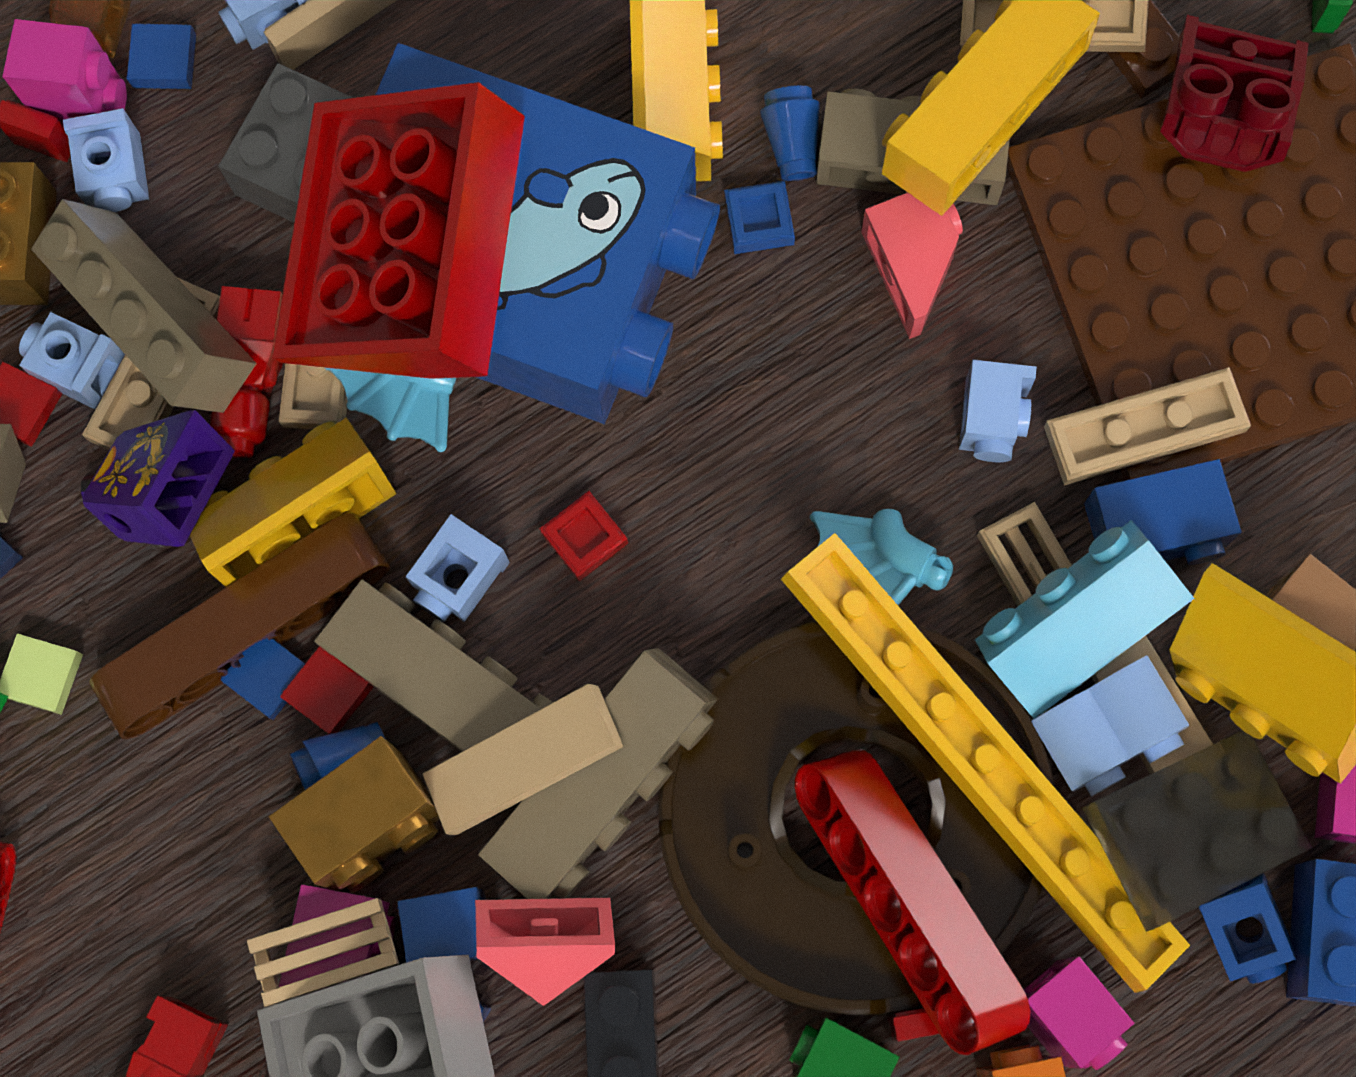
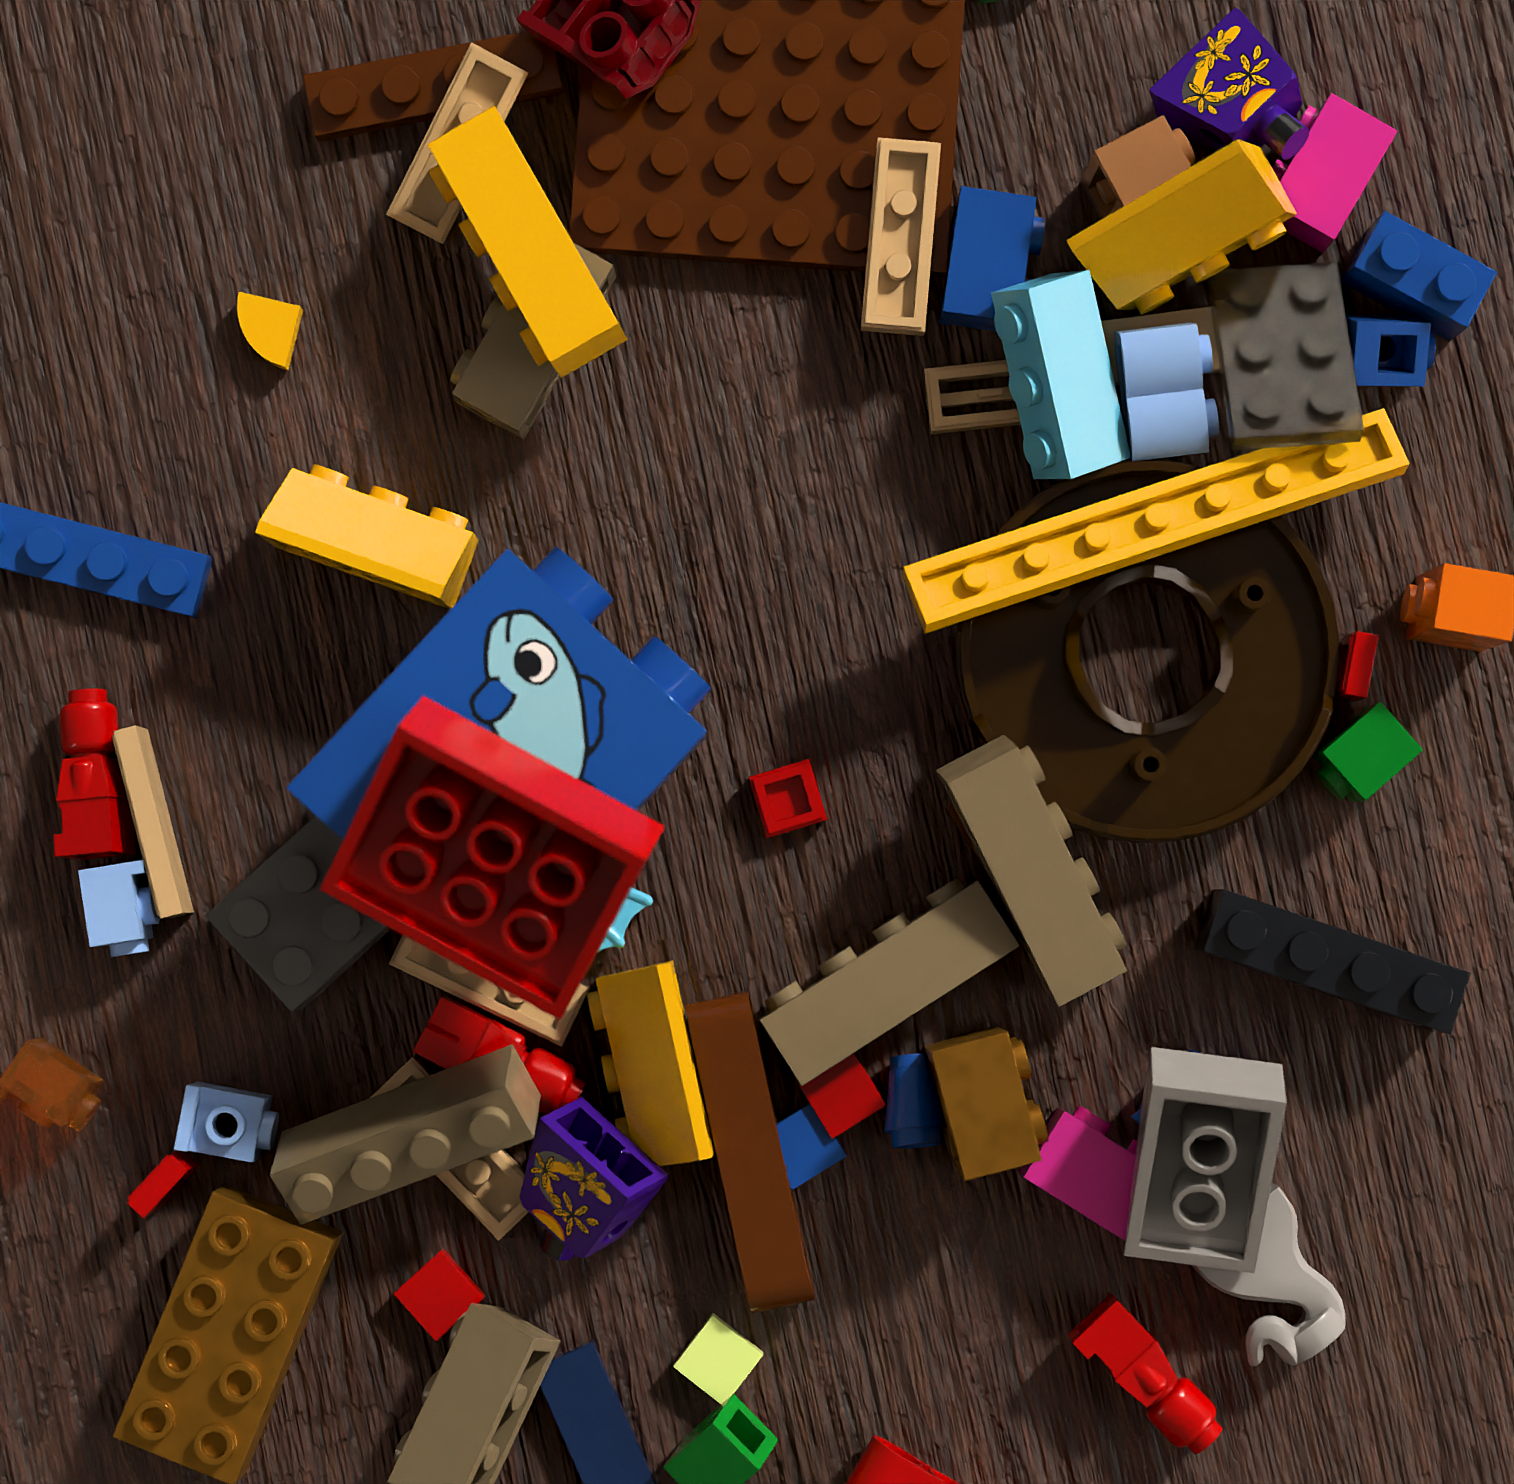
camera: 75 degrees left, 10 degrees up
(61, 70) = (129, 1131): dark pink brick -> none
(86, 368) = (436, 1209): light blue brick -> none
(161, 56) = (127, 1030): blue tile -> none
(267, 969) = (1093, 1233): tan tile -> none
(440, 924) = (1109, 1058): blue brick -> none
(451, 549) = (772, 906): light blue brick -> none
(522, 759) = (996, 932): tan tile -> none
(544, 942) = (1162, 974): coral slope -> none
(759, 217) = (538, 508): blue tile -> none
(792, 130) = (468, 442): blue cone -> none
(887, 551) = (918, 530): medium azure arm -> none
(911, 253) = (644, 381): coral slope -> none
(912, 902) = (1253, 635): red beam -> none
(994, 409) = (825, 368): light blue brick -> none
(1076, 1015) = (1403, 536): dark pink brick -> none

